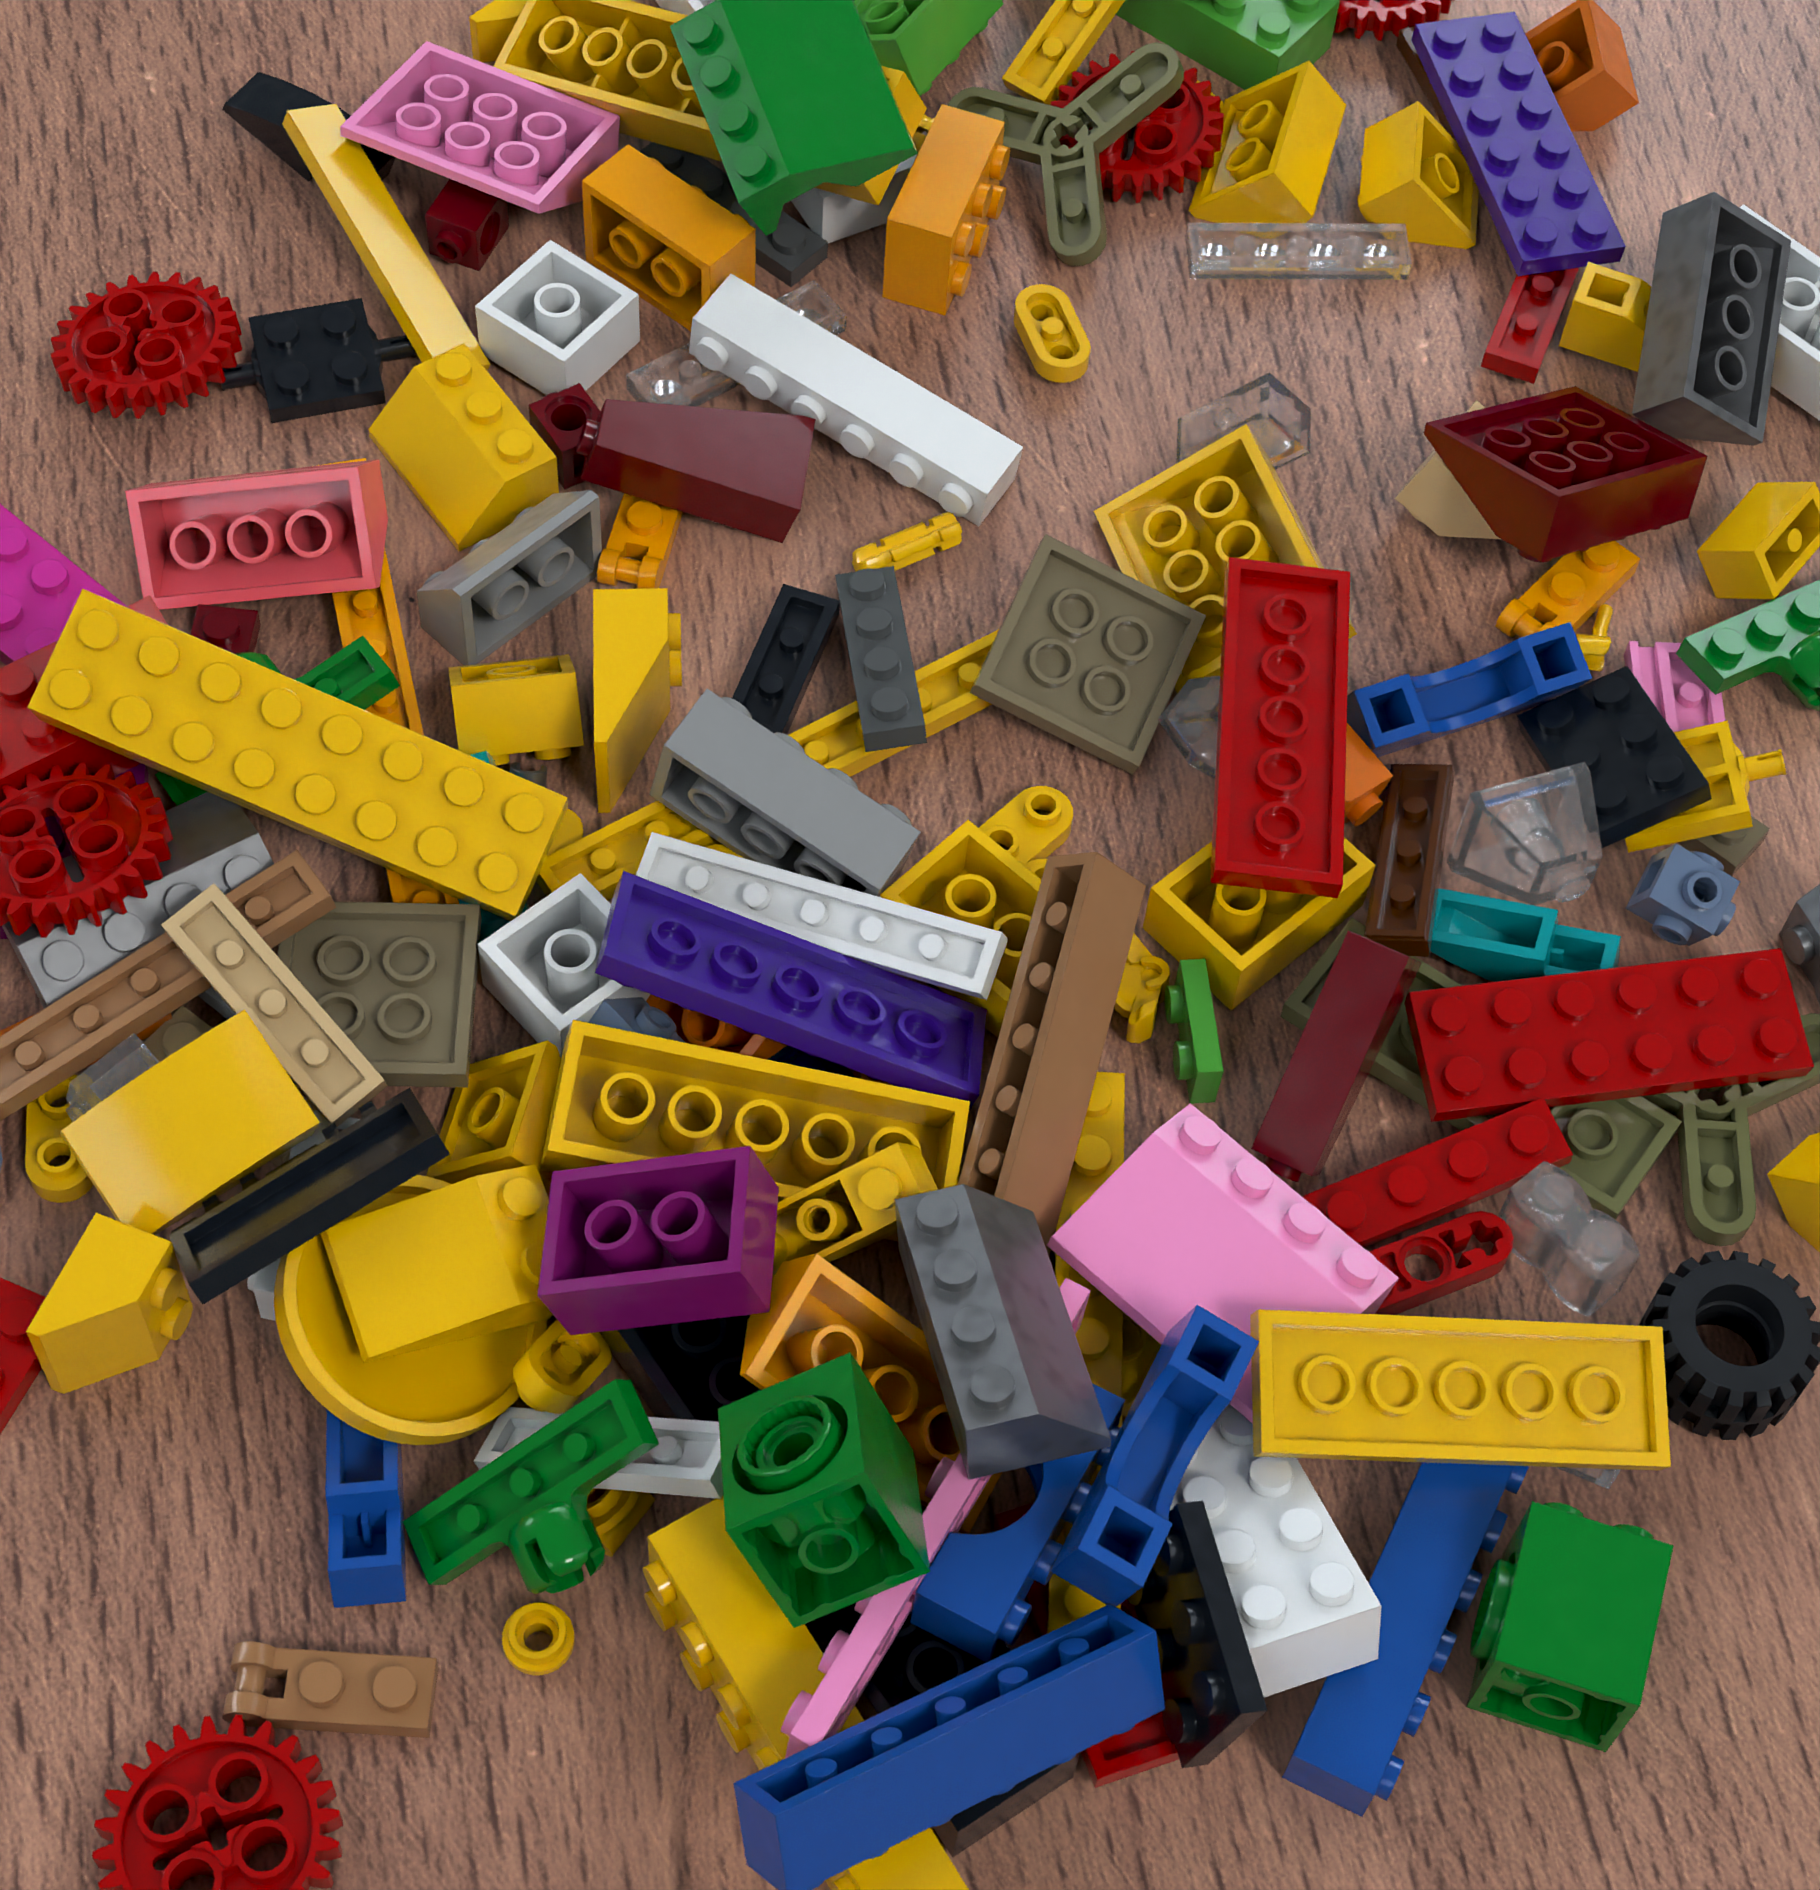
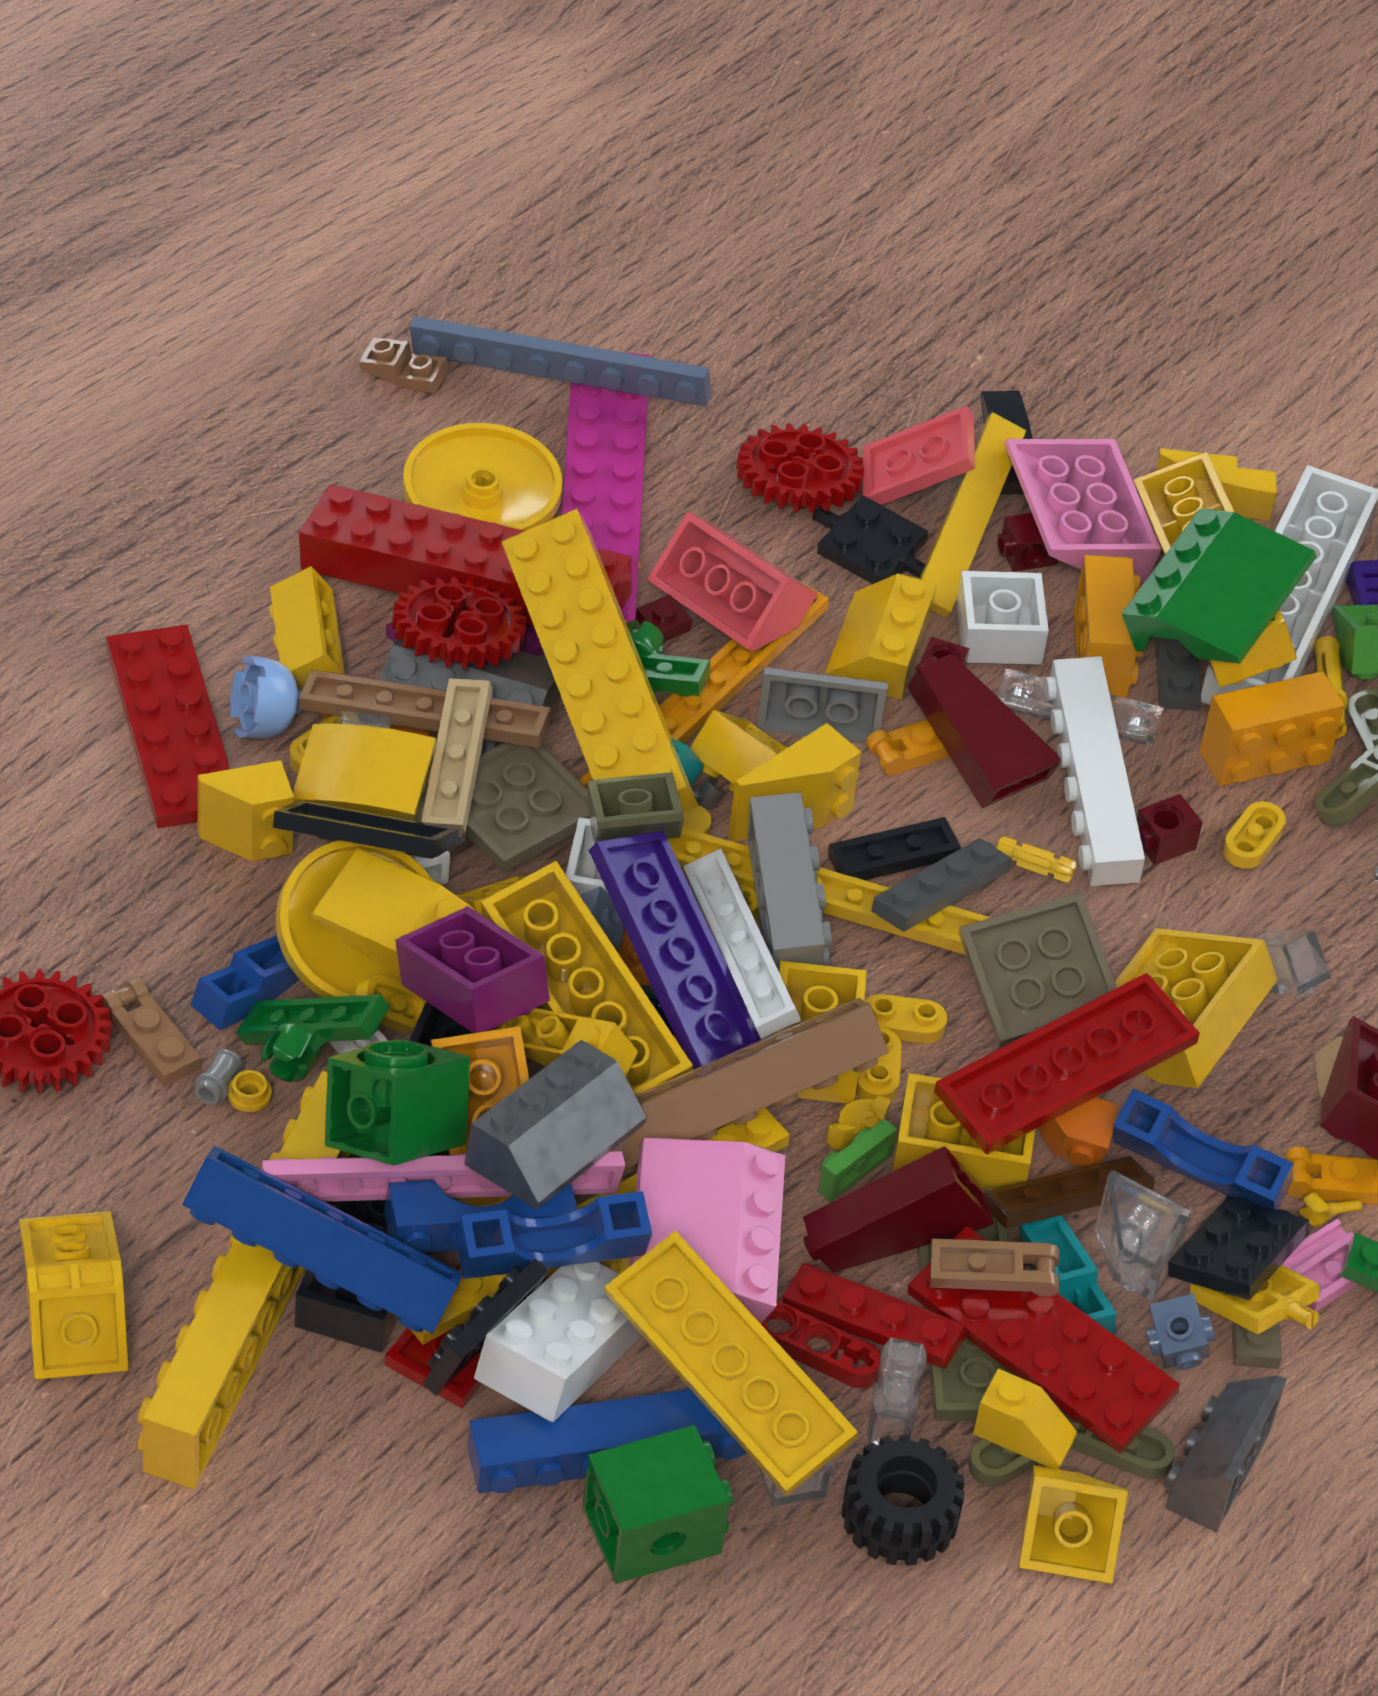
camera: 50 degrees right, 10 degrees down
(262, 223) = (919, 456): none -> coral plate
(491, 1673) = (213, 1085): none -> light grey pin
(556, 875) = (634, 806): none -> olive slope
(984, 388) = (1168, 829): none -> dark red brick
(1507, 1010) = (994, 1266): none -> medium nougat plate
(1712, 1141) = (1024, 1420): none -> yellow slope

